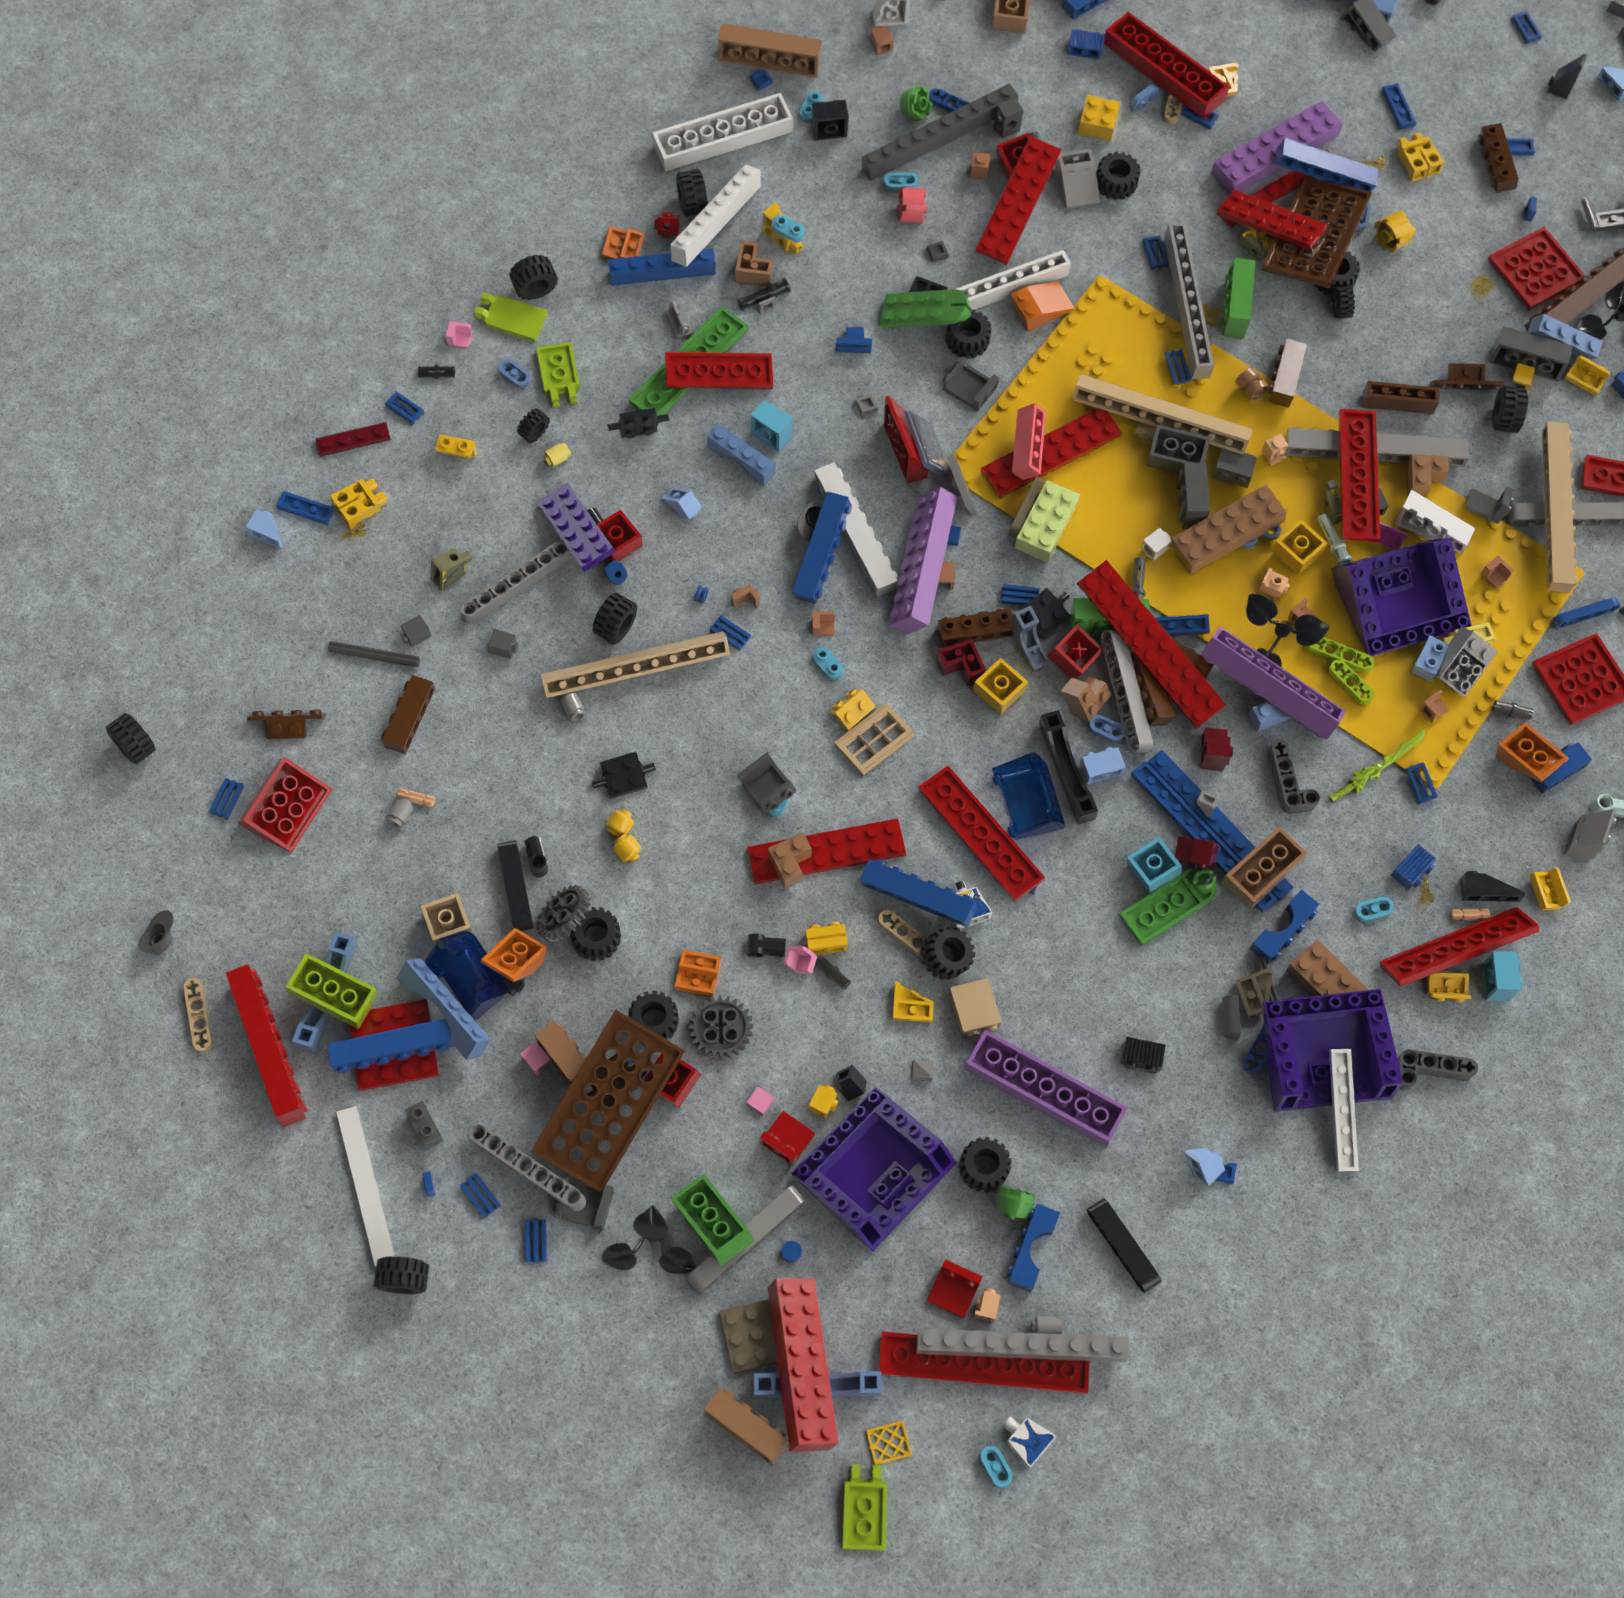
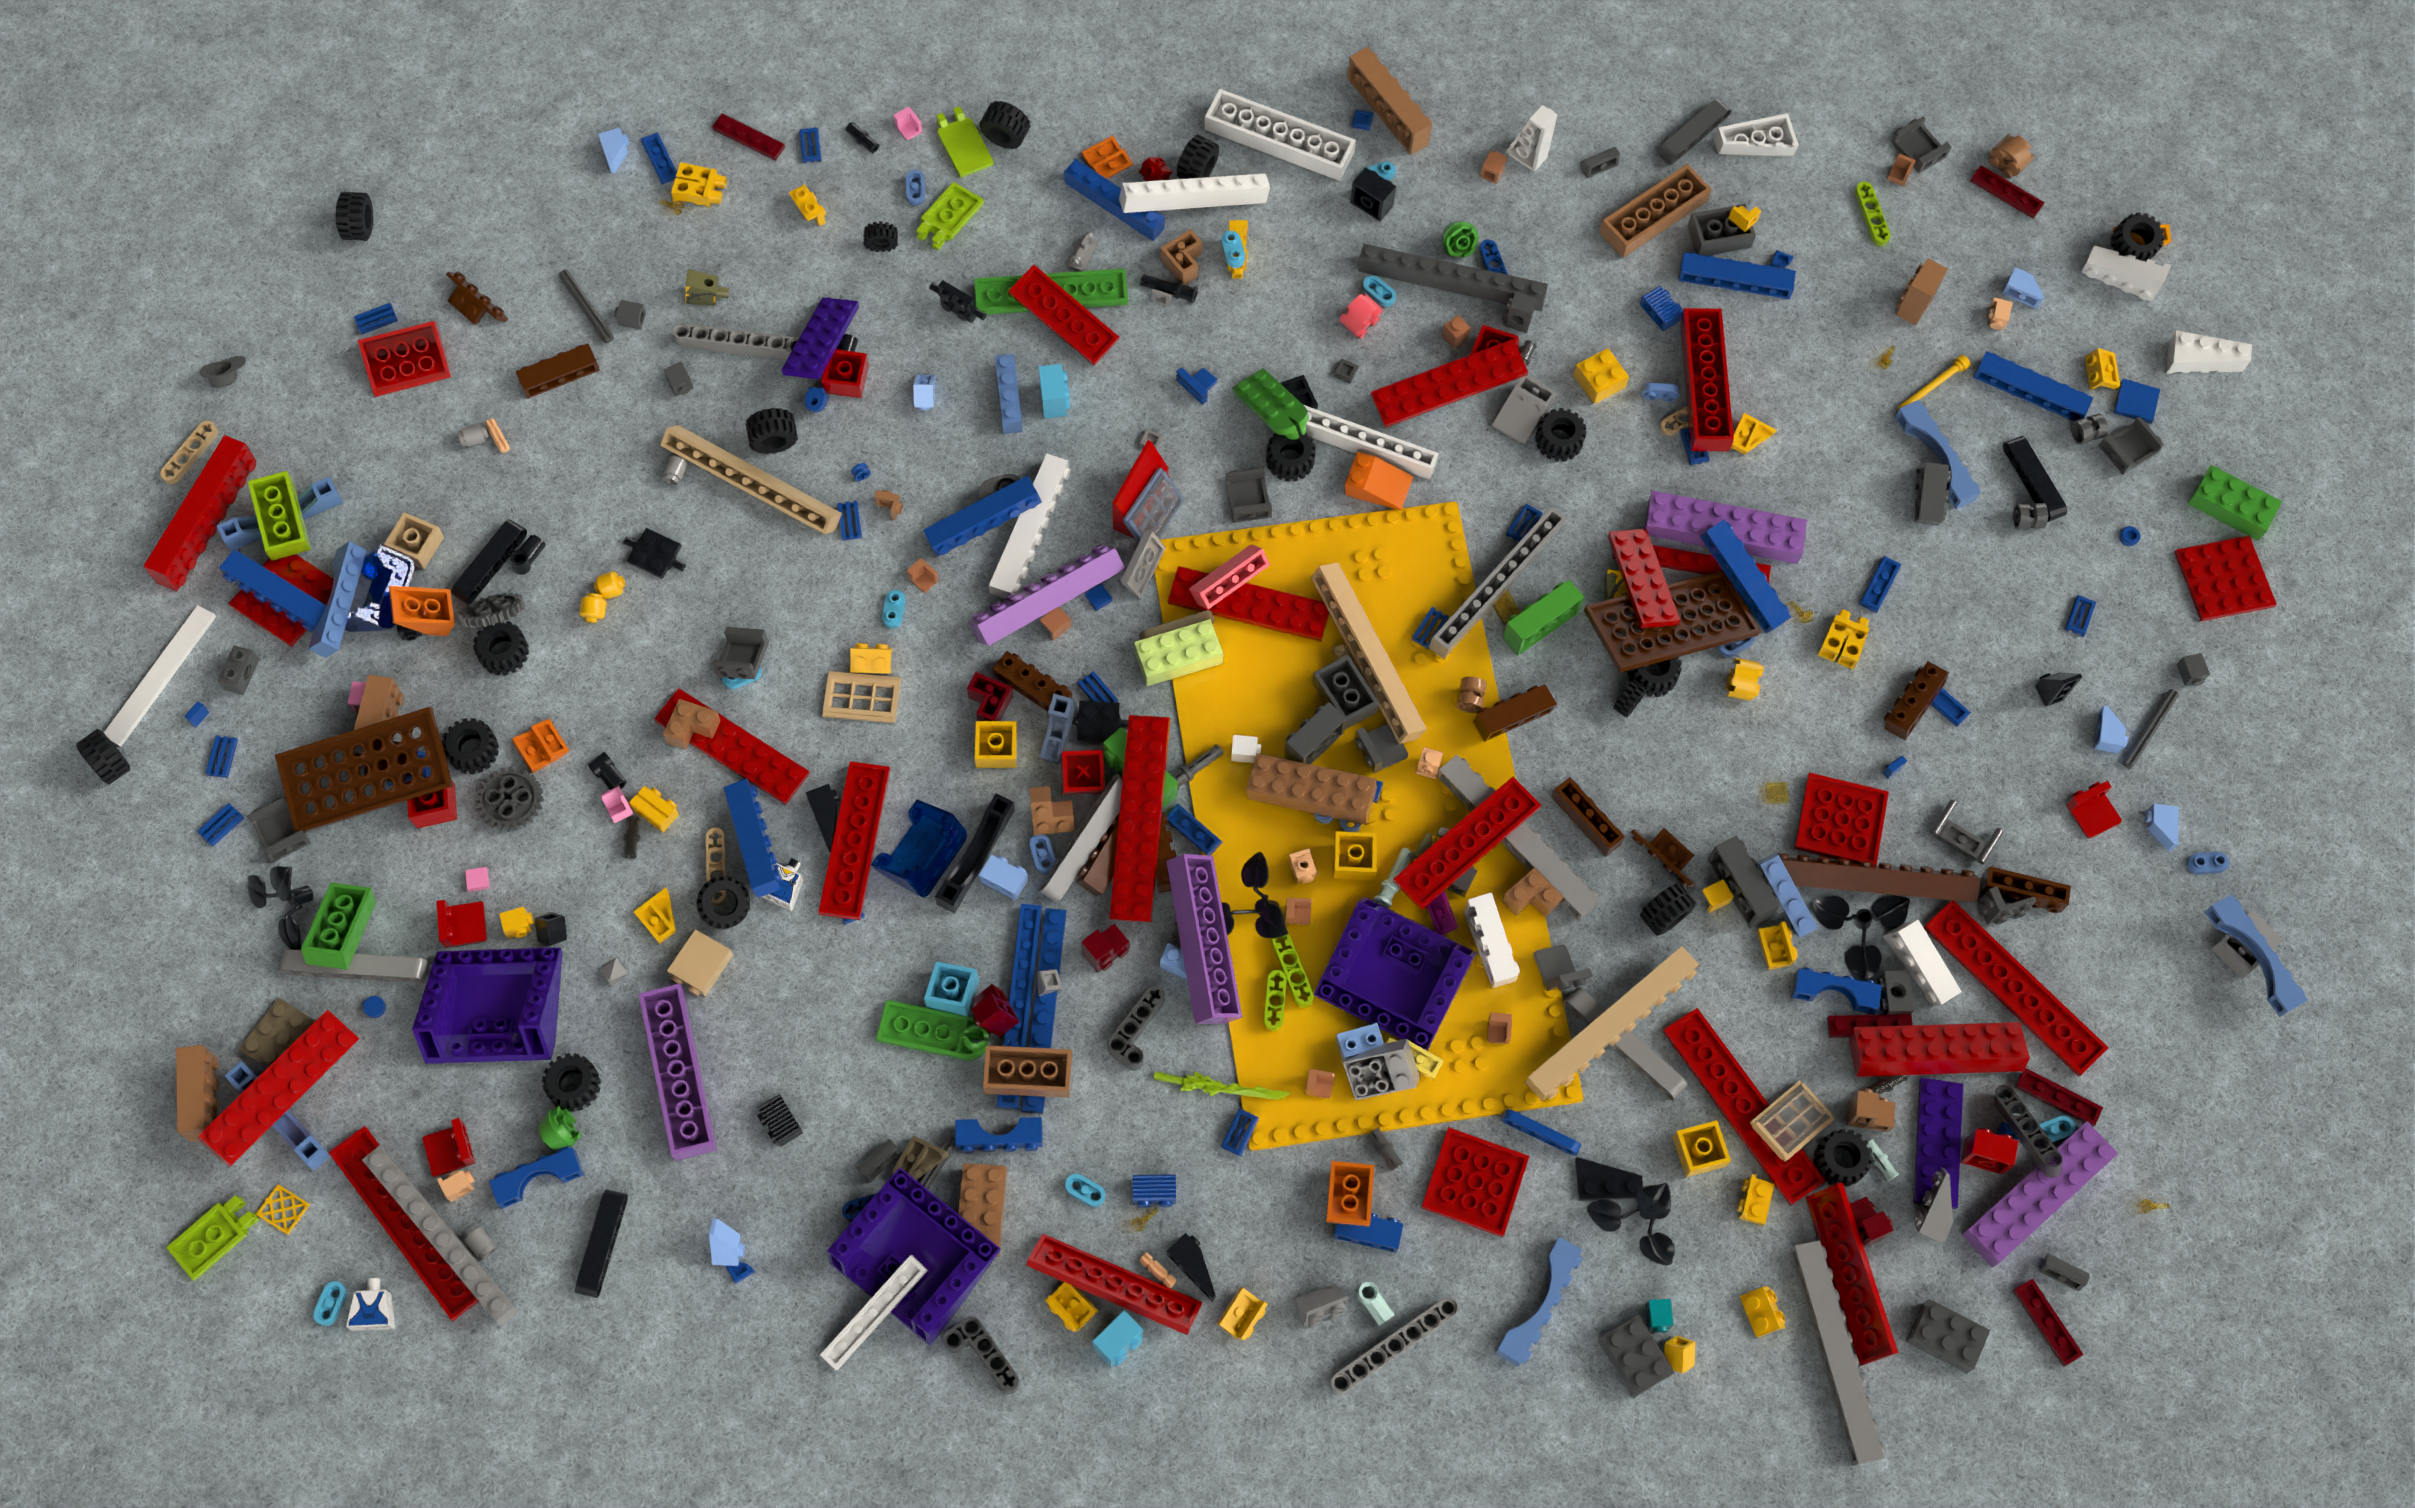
camera: 45 degrees right, 0 degrees up
(533, 1173) = (265, 765): light grey beam -> none
(556, 454) = (875, 274): light yellow brick -> none
(939, 833) = (825, 811): none -> black slope

